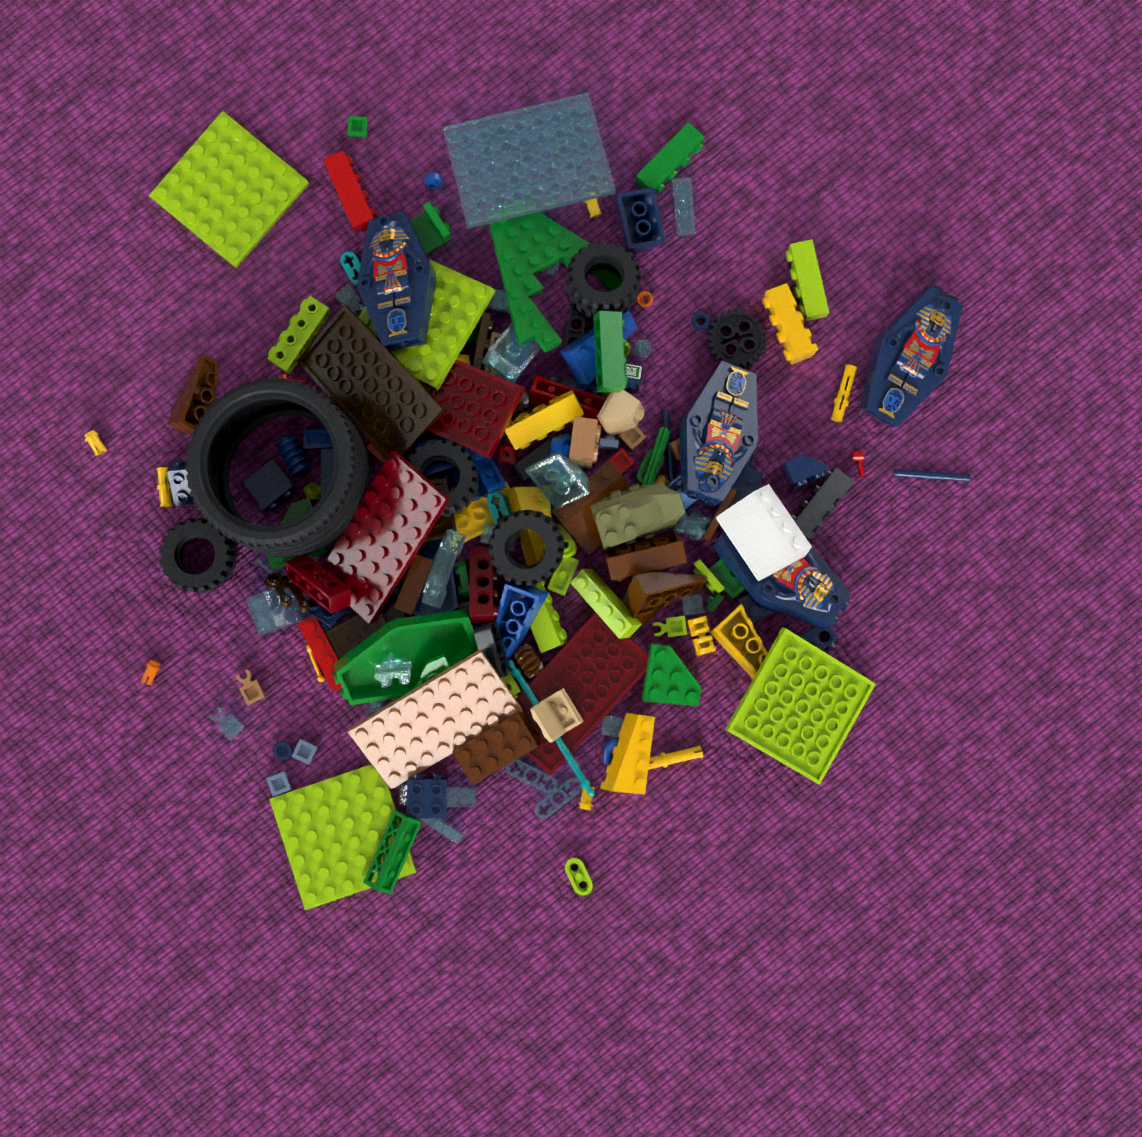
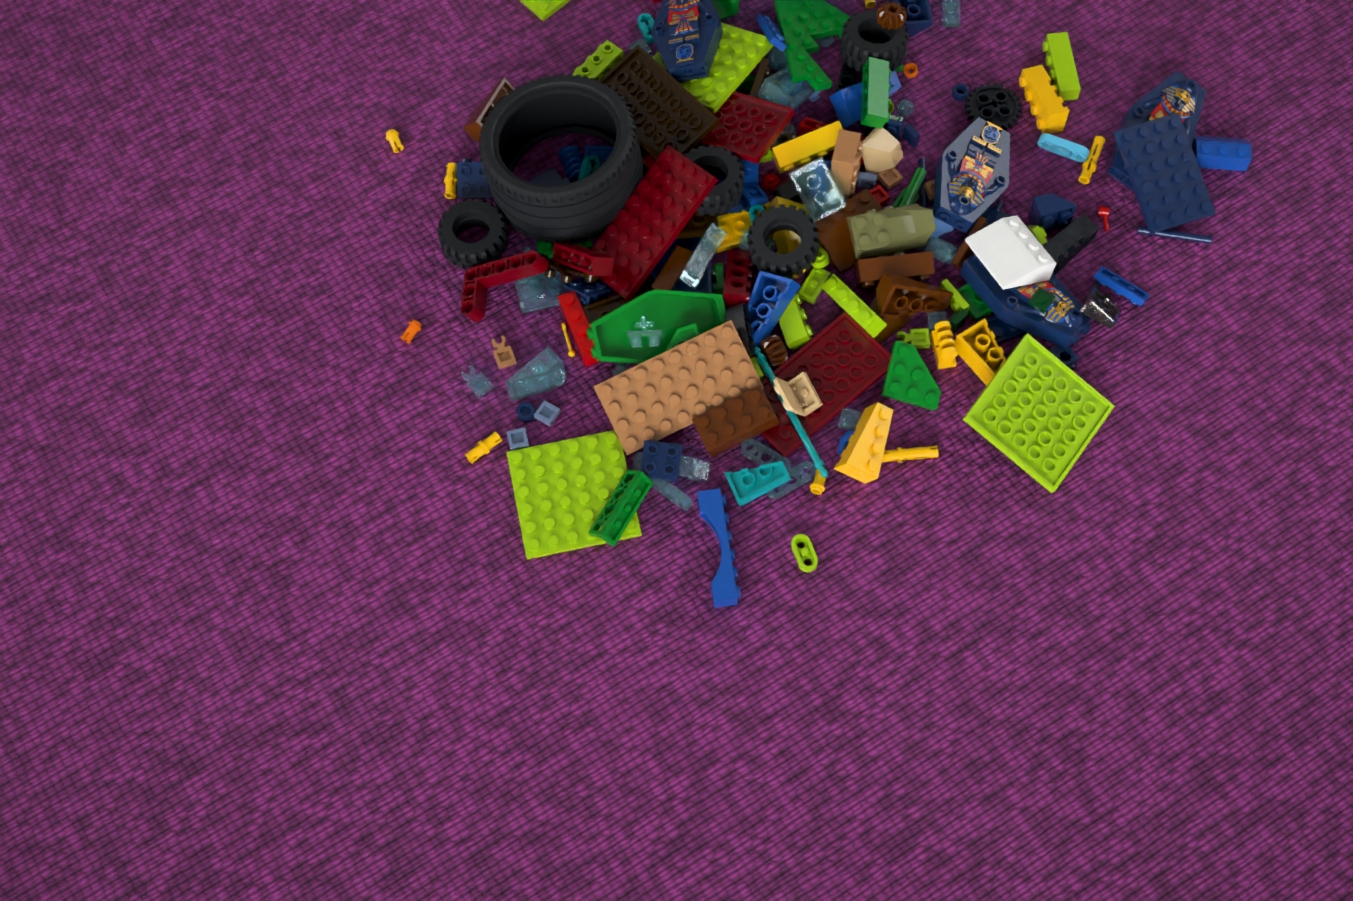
camera: 15 degrees right, 20 degrees down
(211, 610) = (498, 272): none -> dark red beam
(245, 795) = (483, 447): none -> yellow pin
(293, 712) = (537, 376): none -> clear light blue slope
(311, 468) = (586, 168): none -> teal beam
(483, 841) = (723, 585): none -> blue arch
(489, 273) = (770, 30): none -> blue plate
(524, 807) = (755, 482): none -> teal wing
(620, 248) = (891, 15): none -> reddish brown gear
(651, 383) = (911, 135): none -> dark blue tile
(789, 498) = (1039, 233): none -> lime plate
(798, 589) = (1041, 300): none -> dark green plate
(813, 382) = (1063, 147): none -> medium azure beam
(858, 576) = (1100, 307): none -> clear smoke wing
(879, 544) = (1121, 286): none -> blue plate
(920, 412) = (1164, 173): none -> dark blue plate
(979, 370) = (1222, 153): none -> blue slope

